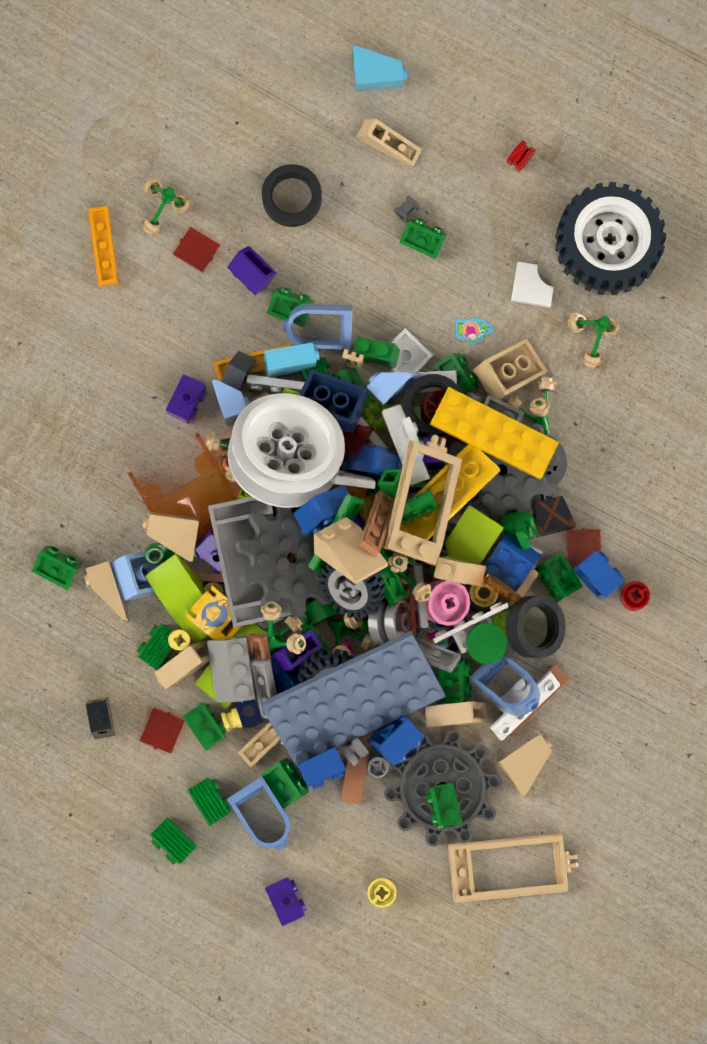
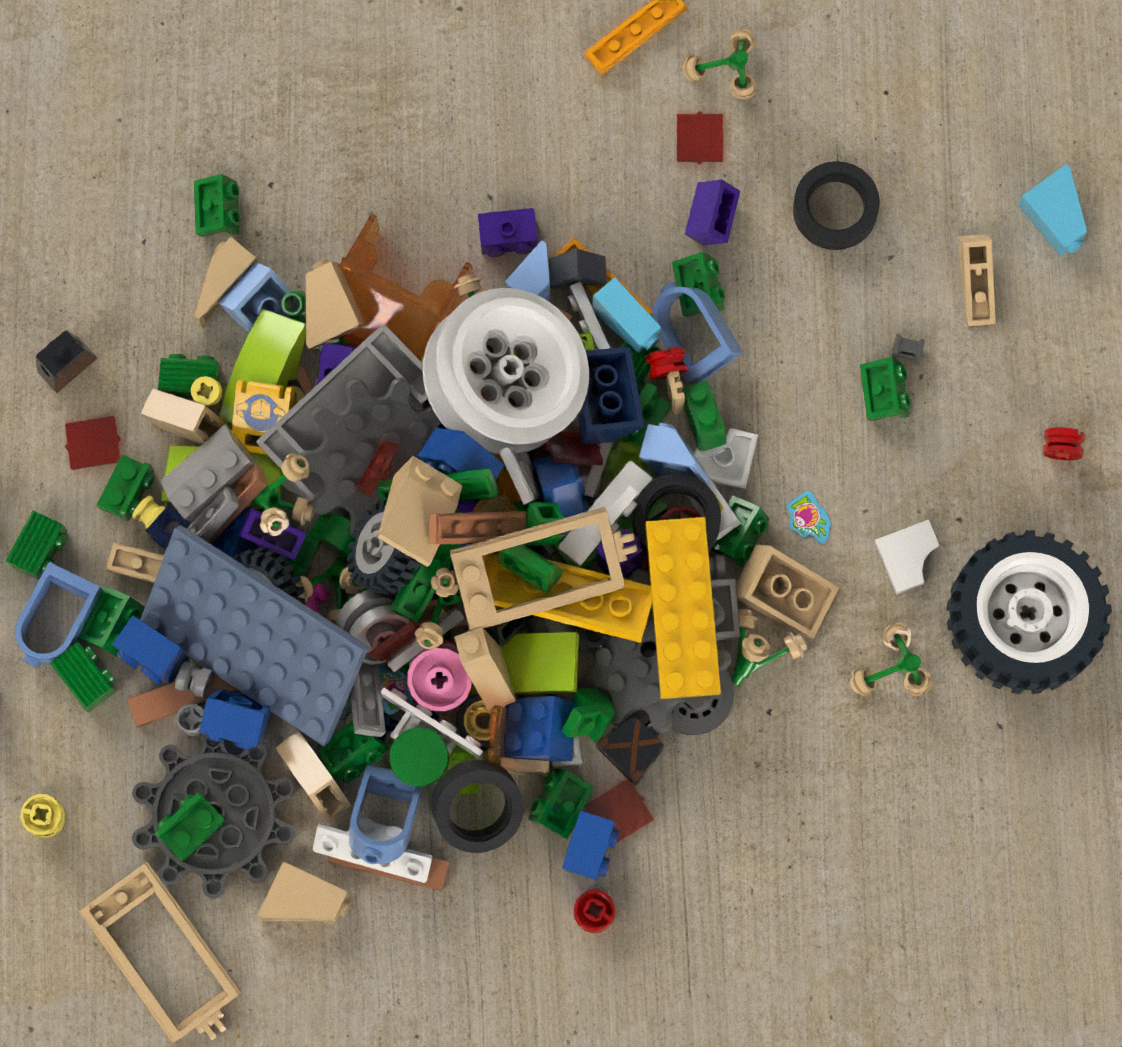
camera: 65 degrees right, 5 degrees down
(300, 562) = (378, 467): none -> clear red plate
(310, 819) = (83, 676): none -> green brick
(333, 353) = (666, 361): none -> red wheel

